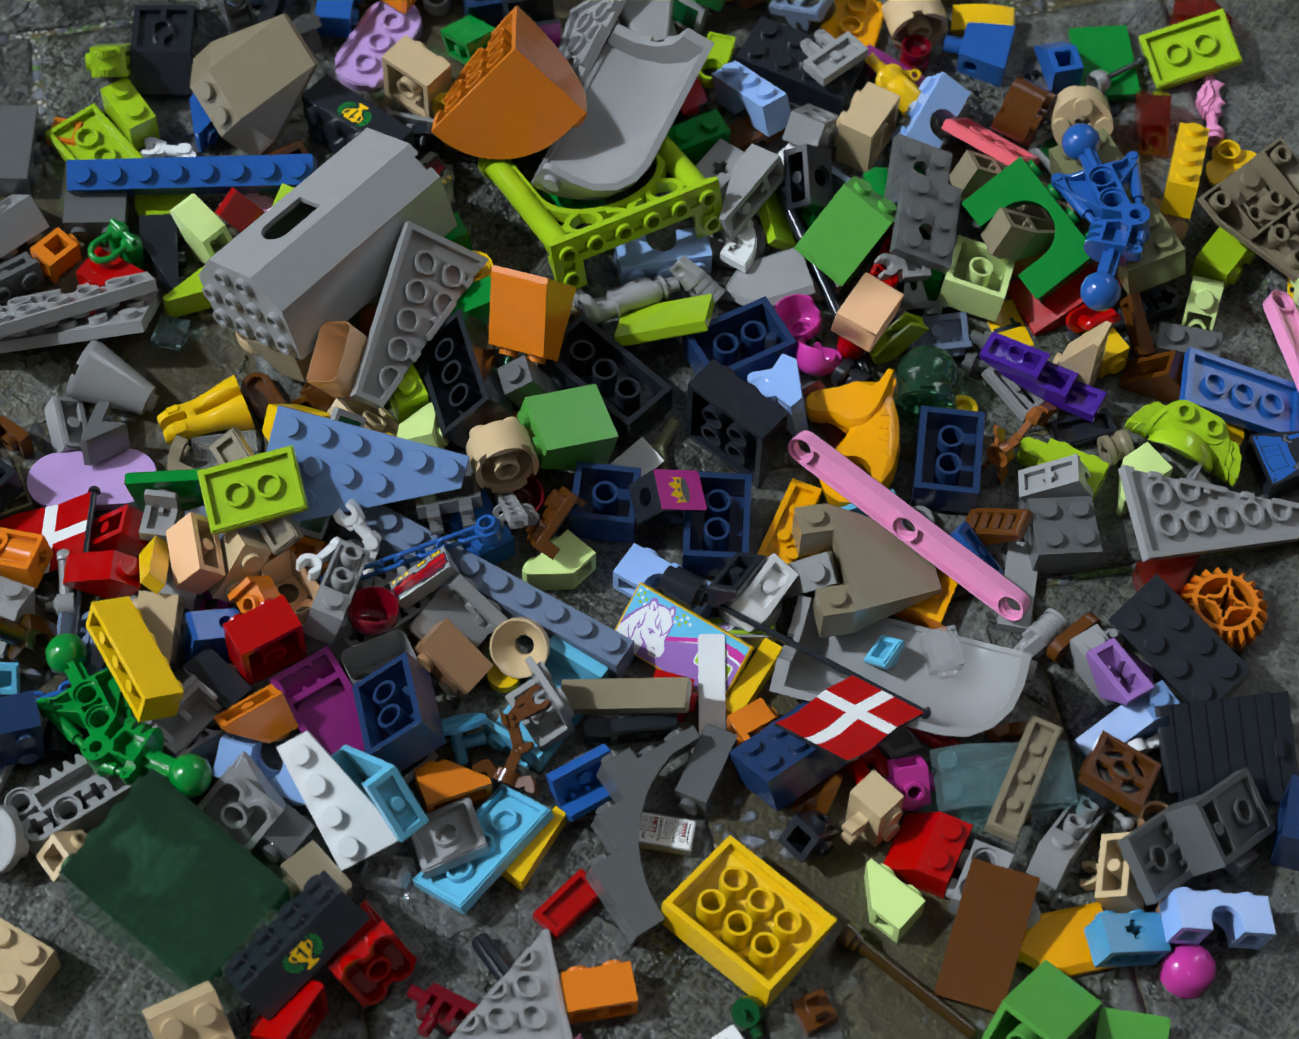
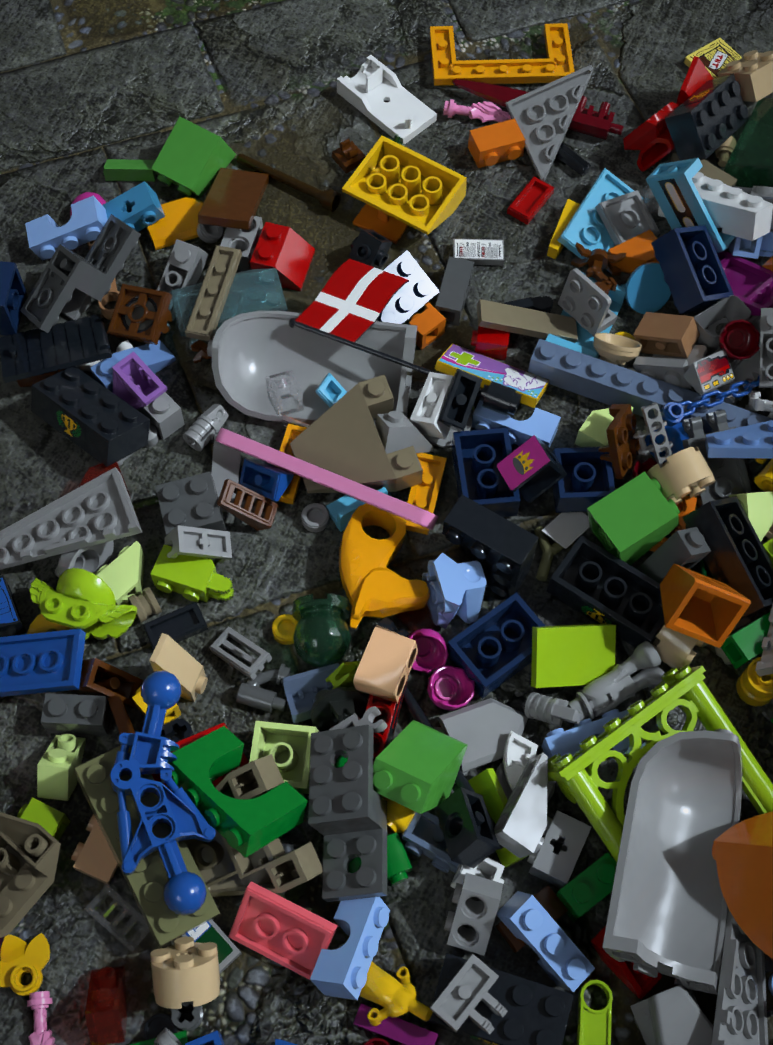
camera: 170 degrees right, 5 degrees up
(577, 787) = (537, 264): blue bracket -> none
(620, 876) = (509, 256): dark grey arch -> none
(711, 680) = (462, 346): white sticker -> none
(754, 676) = (435, 351): yellow piece -> none
(866, 127) = (415, 924): tan brick -> none
(873, 811) = (321, 261): tan brick -> none
(890, 902) = (306, 220): yellowish green slope -> none
(912, 780) = (308, 290): dark pink brick -> none
(948, 459) = (293, 559): dark blue brick -> none
(1002, 452) = (212, 623): dark orange piece -> none
(1010, 324) = (242, 724): yellow sticker -> none
(1023, 111) = (250, 982): reddish brown brick -> none
(1038, 375) = (224, 655): dark purple slope -> none
(1058, 648) = (173, 432): reddish brown tile -> none
(1087, 319) = (178, 722): red piece -> none
(1114, 881) = (144, 257): tan brick -> none
(1185, 170) = (72, 918): yellow brick -> none
(1241, 605) = (46, 462): orange gear -> none

